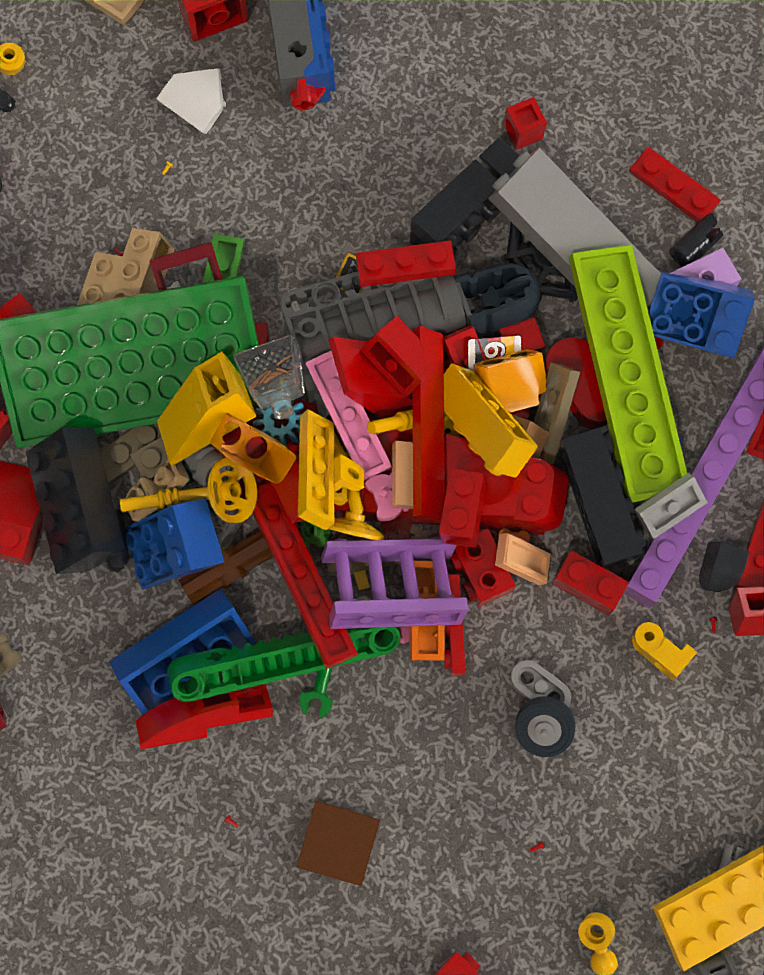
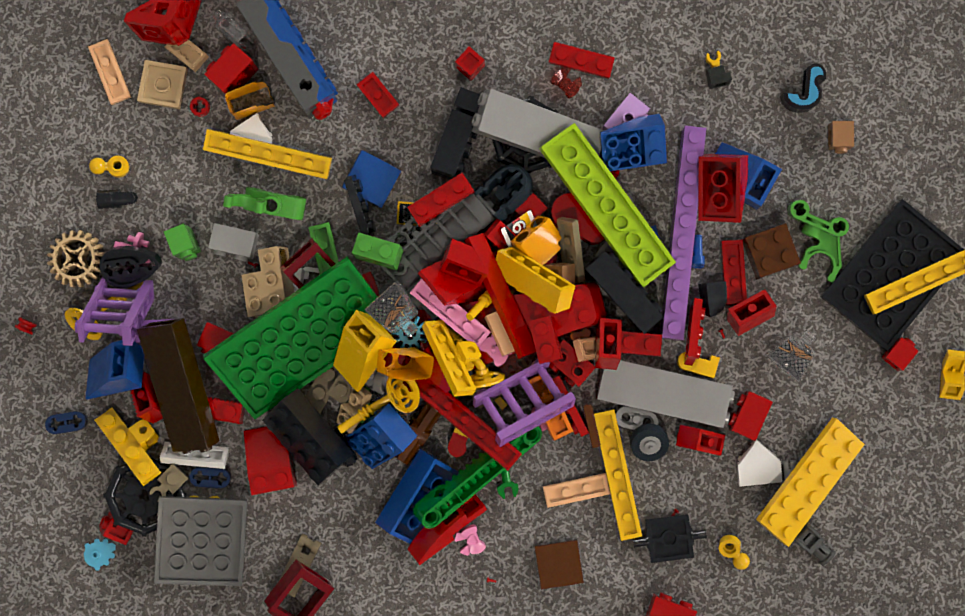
camera: 20 degrees left, 10 degrees up
(40, 178) = (182, 242): none -> bright green brick
(106, 210) = (233, 241): none -> light grey brick
(147, 24) = (204, 111): none -> red bush
(165, 173) = (257, 201): none -> bright green piece
(207, 120) = (267, 153): none -> yellow plate
(214, 33) = (249, 88): none -> light orange piece
(232, 758) = (474, 544): none -> bright pink piece
(275, 606) = (457, 443): none -> red leg
(288, 289) = (377, 251): none -> bright green brick
(294, 236) = (360, 206): none -> black plate
(326, 212) = (376, 177): none -> blue slope
(386, 114) = (378, 95): none -> red plate
(411, 749) = (576, 490): none -> light nougat tile
(473, 666) = (591, 426): none -> reddish brown tile
(479, 754) = (617, 475): none -> yellow plate
(514, 879) = (669, 538): none -> black plate
(548, 558) = (608, 343): none -> red brick
(599, 668) = (666, 393): none -> light grey brick
(619, 757) = (700, 440): none -> red slope
(636, 196) = (565, 84): none -> clear red piece
(671, 506) = (668, 278): light grey plate -> none
(676, 600) = (694, 332): none -> red plate
(687, 834) = (758, 466): none -> white slope
(696, 241) = (611, 93): black hinge -> none
(706, 754) = (750, 415): none -> red brick
(723, 504) = (698, 259): none -> blue piece

